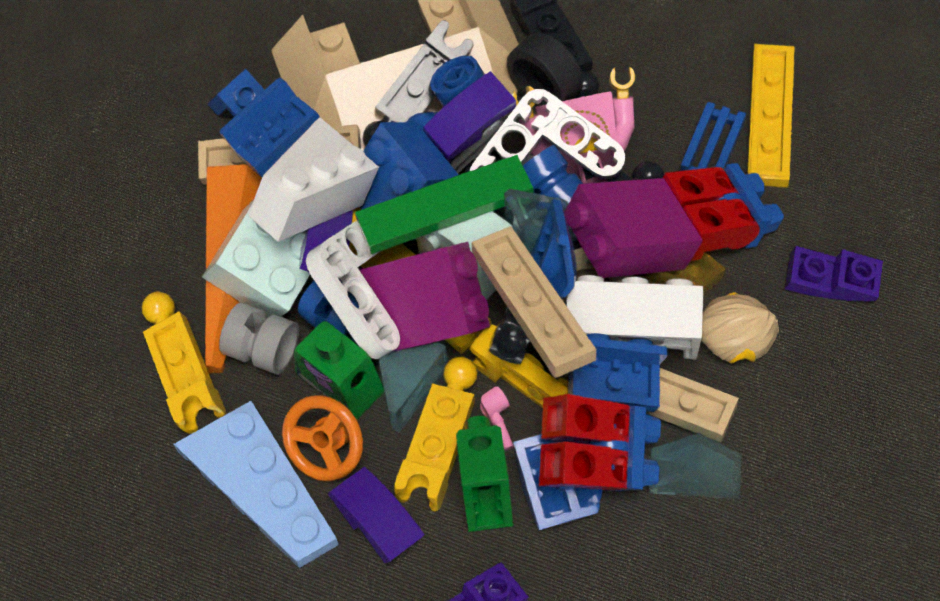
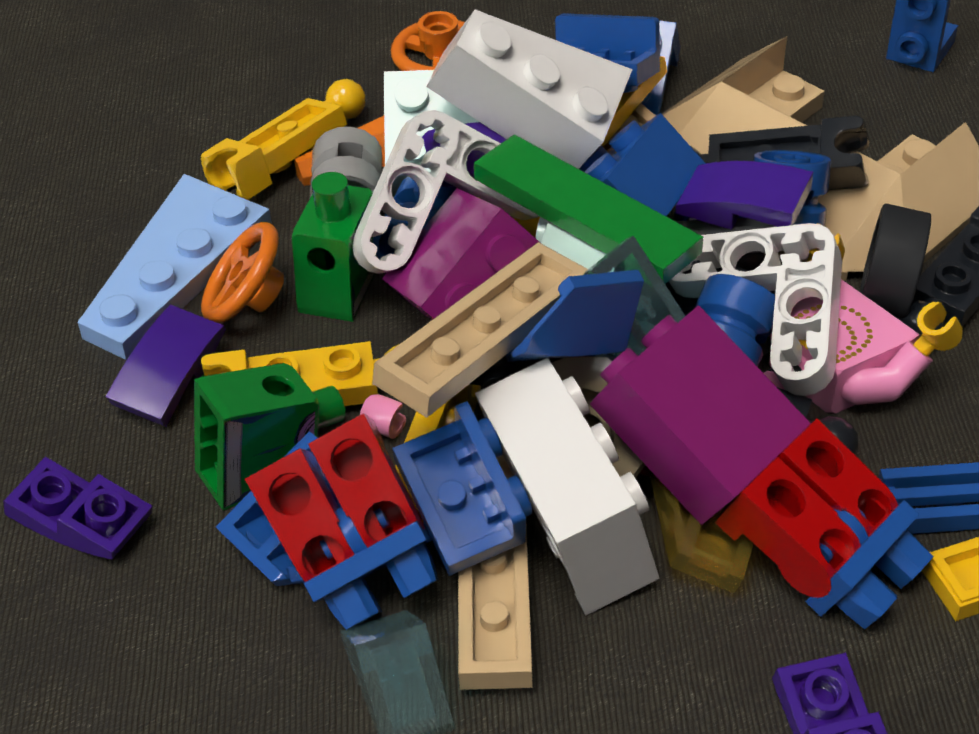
camera: 60 degrees right, 15 degrees down
(127, 222) = (429, 36): none -> orange piece
(408, 379) = (358, 312): clear light blue slope -> none
(738, 328) = (657, 636): tan hair -> none

